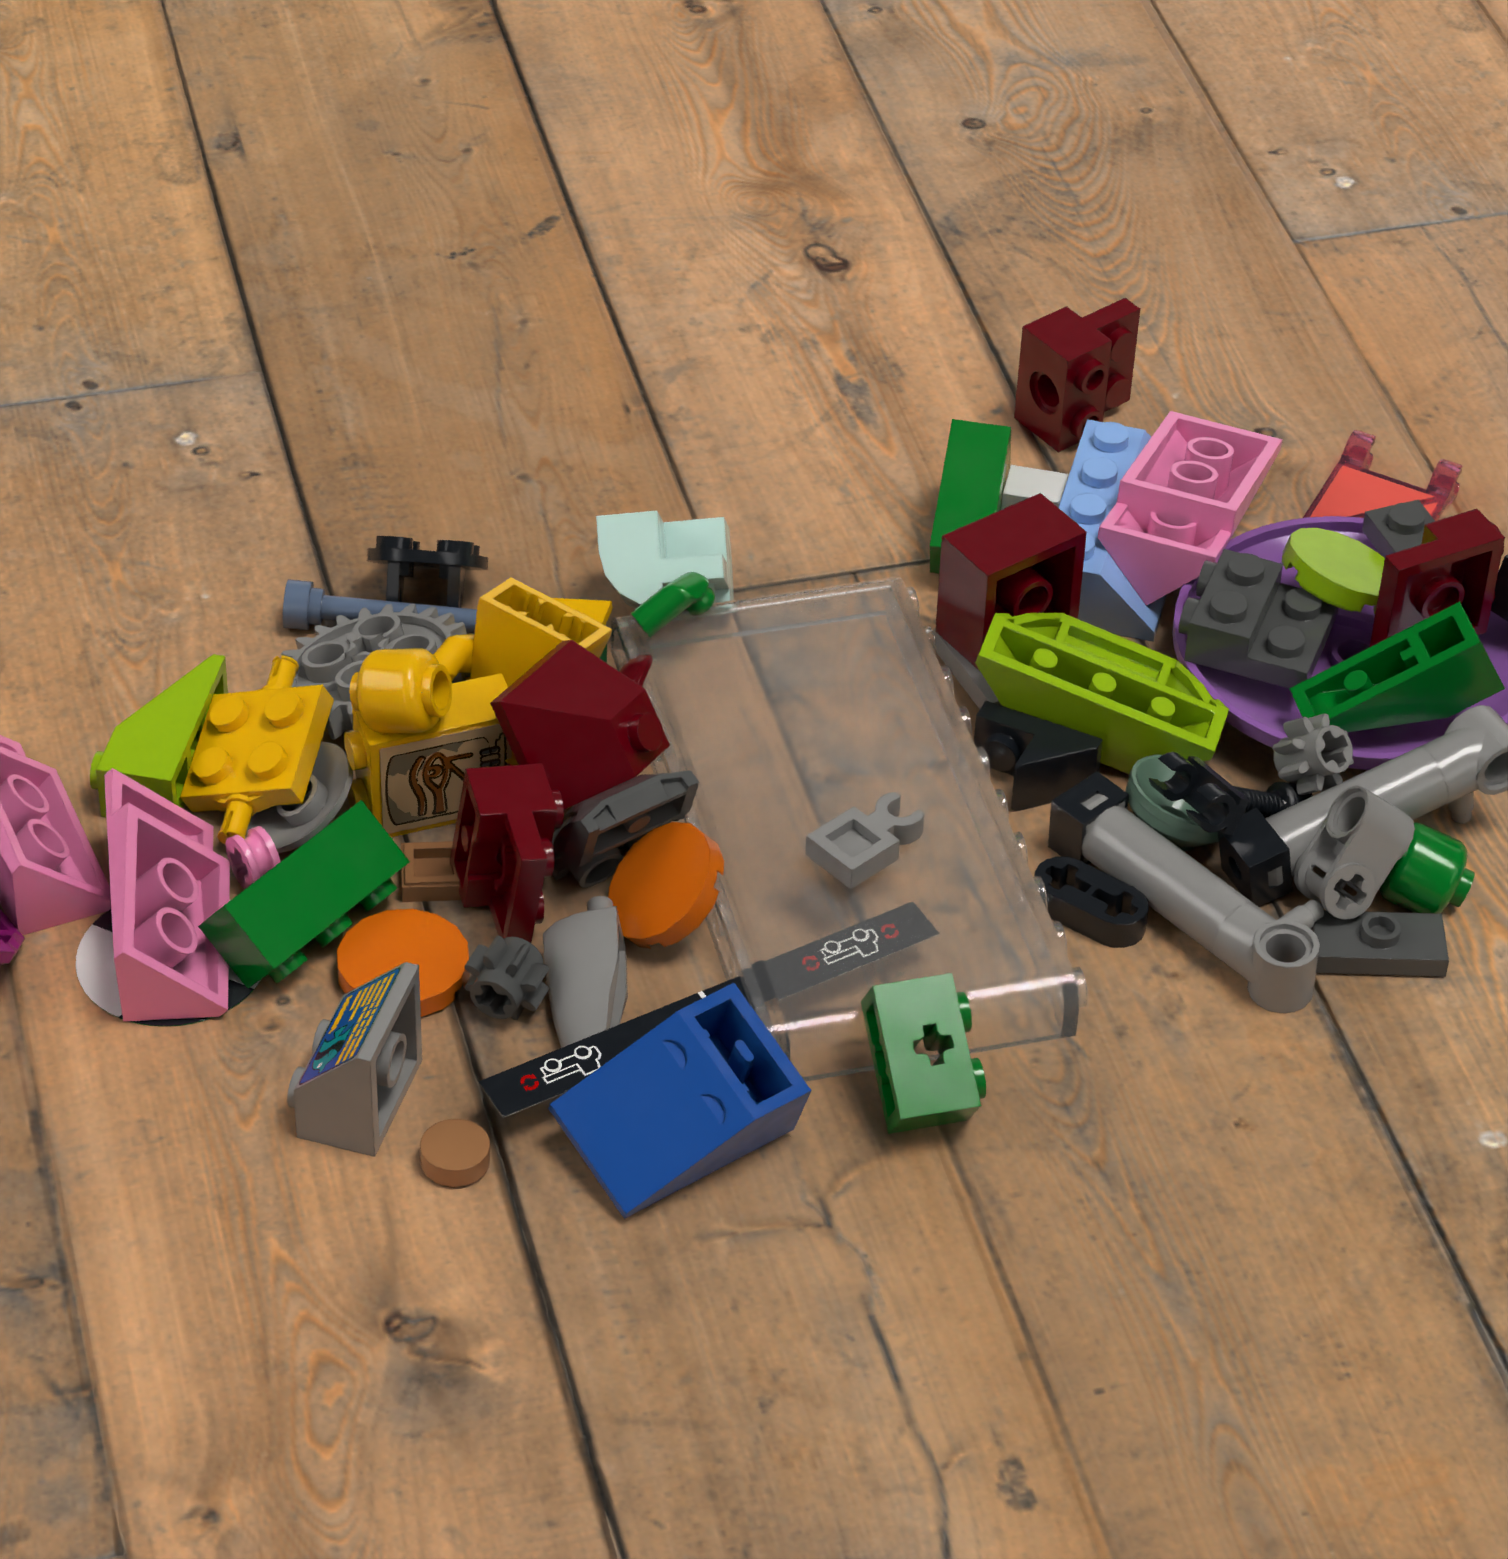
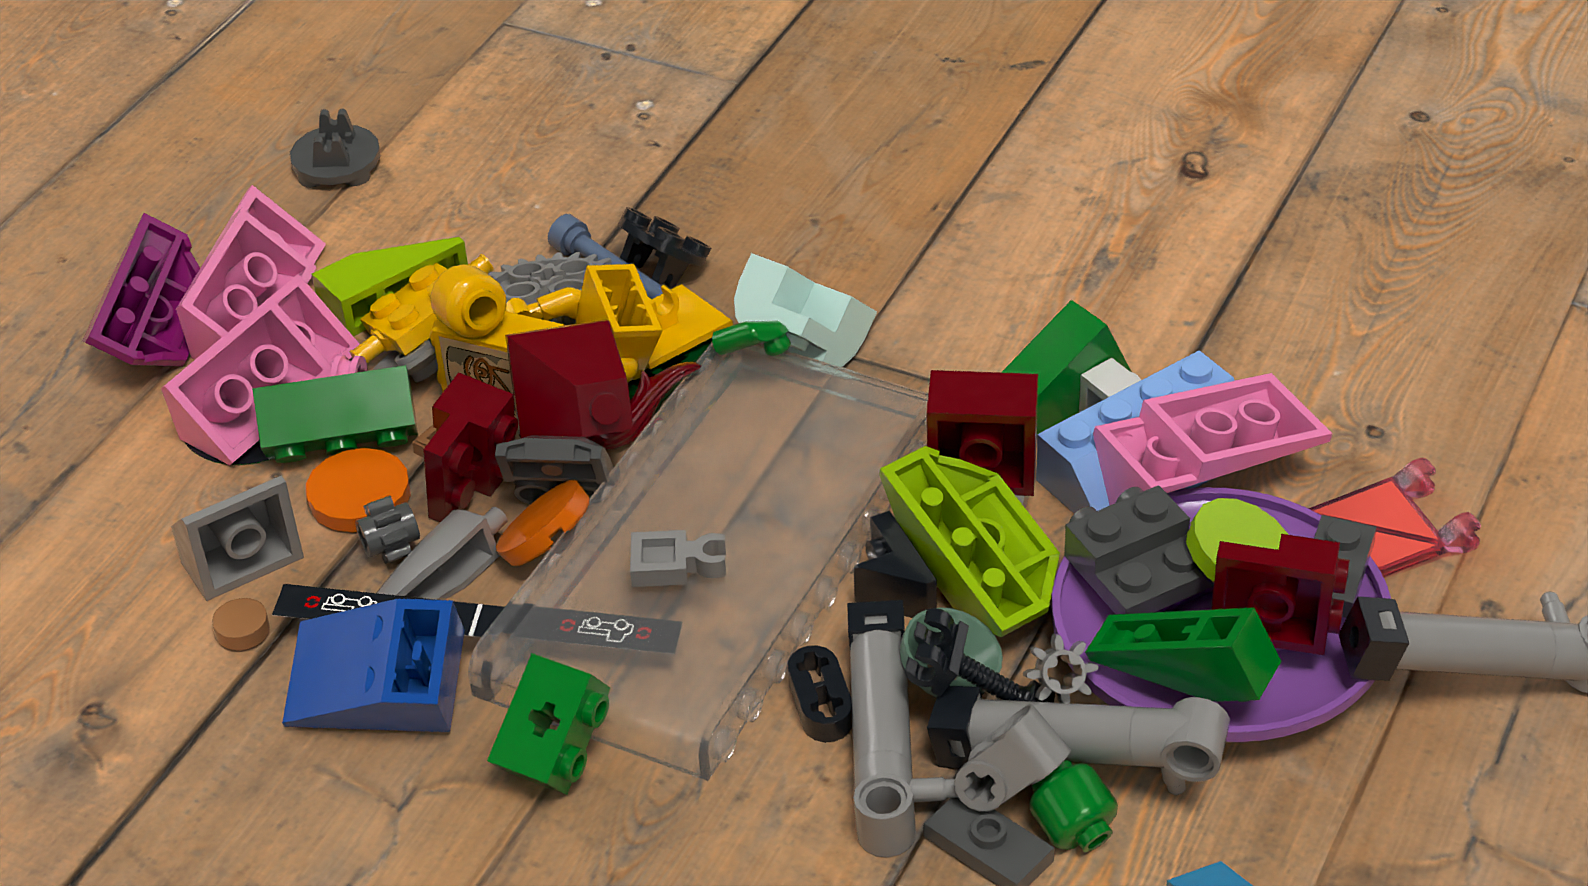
camera: 45 degrees right, 0 degrees up
(1075, 370) = (1226, 313): dark red brick -> none

